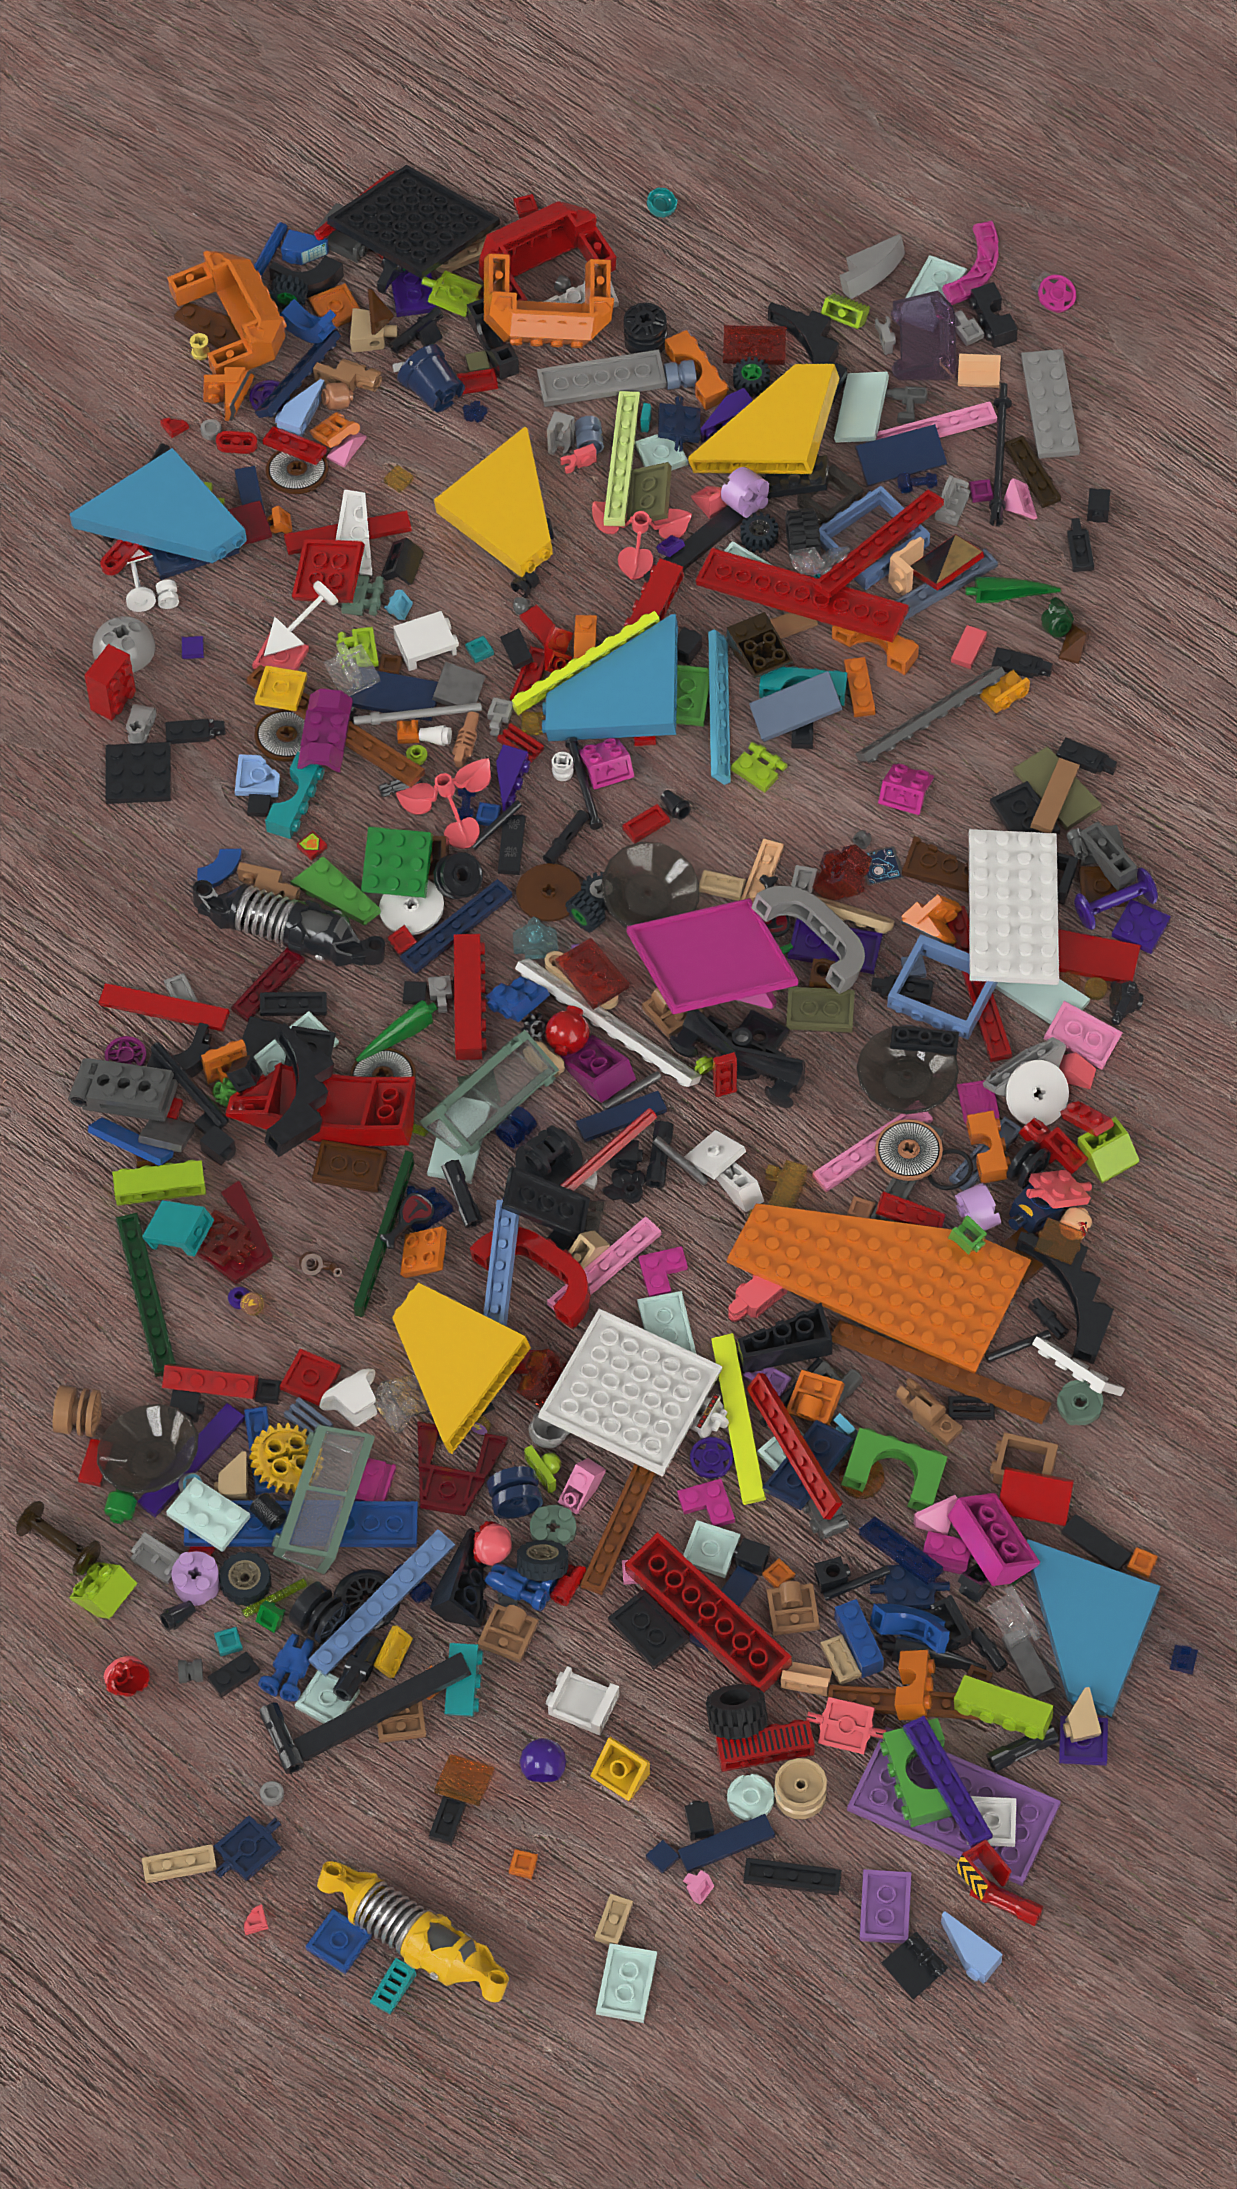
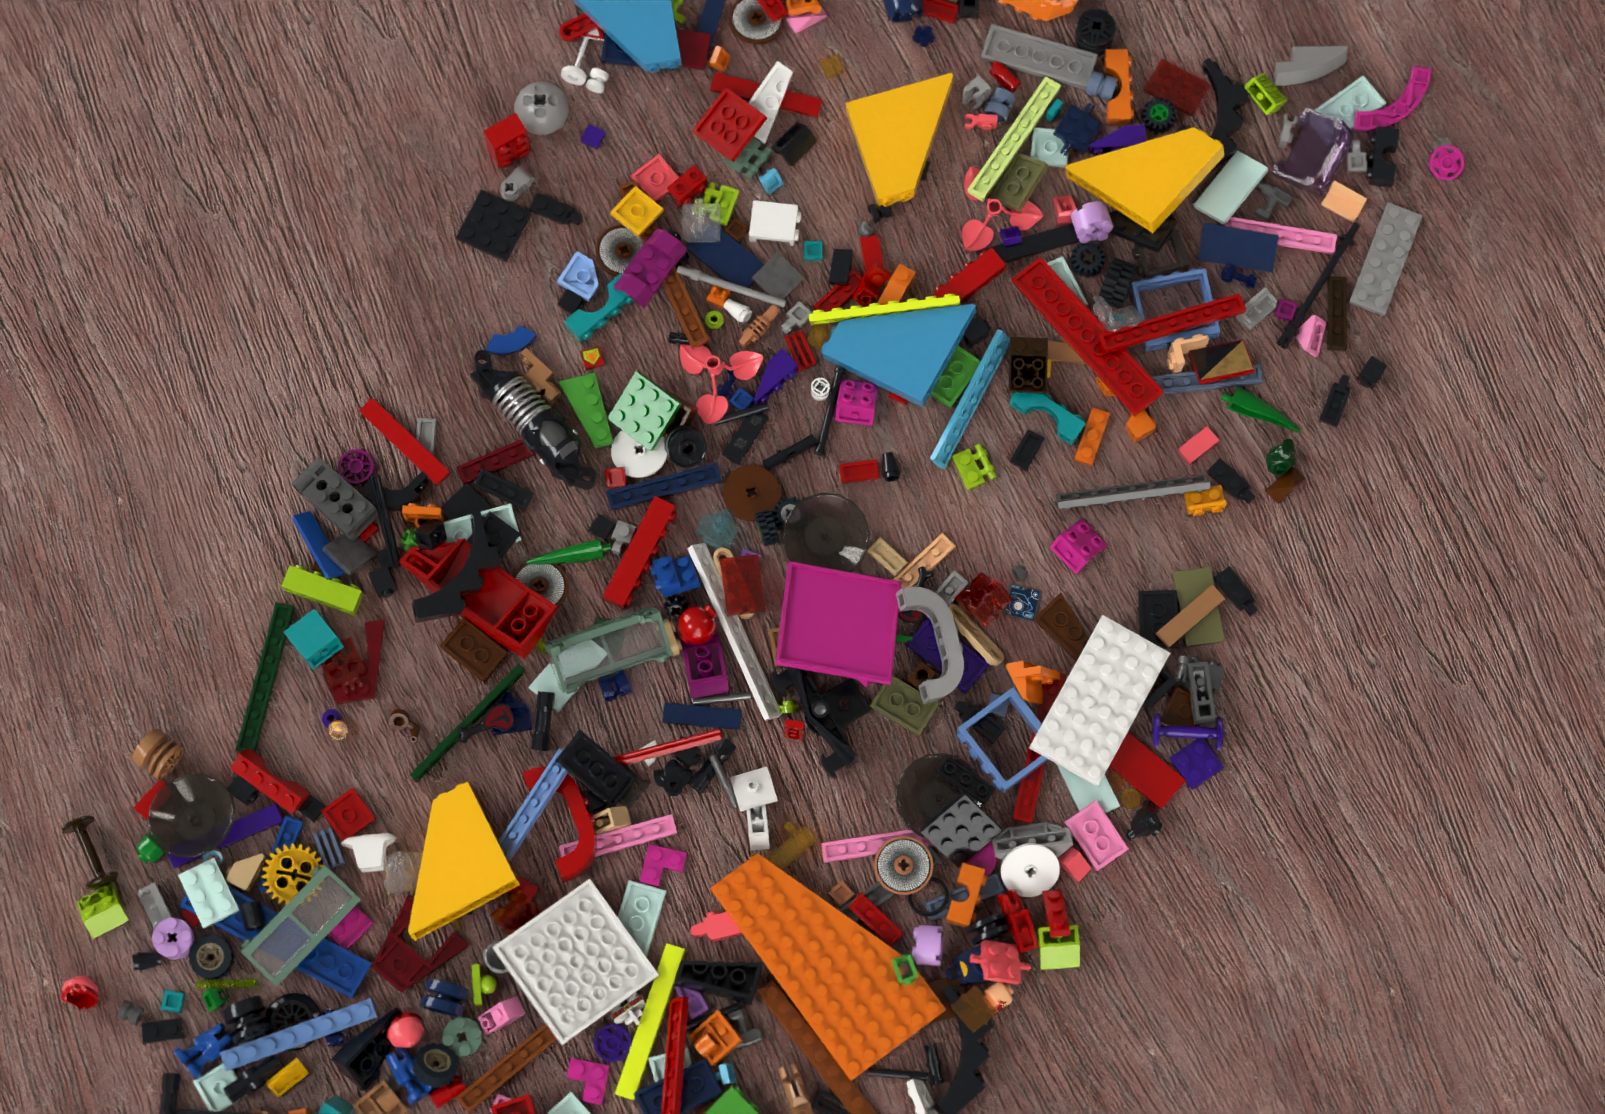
camera: 25 degrees right, 15 degrees up
(282, 637) = (663, 165): white piece -> none
(319, 644) = (687, 186): none -> red bracket
(423, 1252) = (487, 755): orange plate -> none
(550, 1147) = (623, 728): black piece -> none
(577, 408) = (1004, 77): none -> red hinge
(795, 706) = (1029, 431): sand blue tile -> none
(947, 1085) = (960, 829): none -> plate

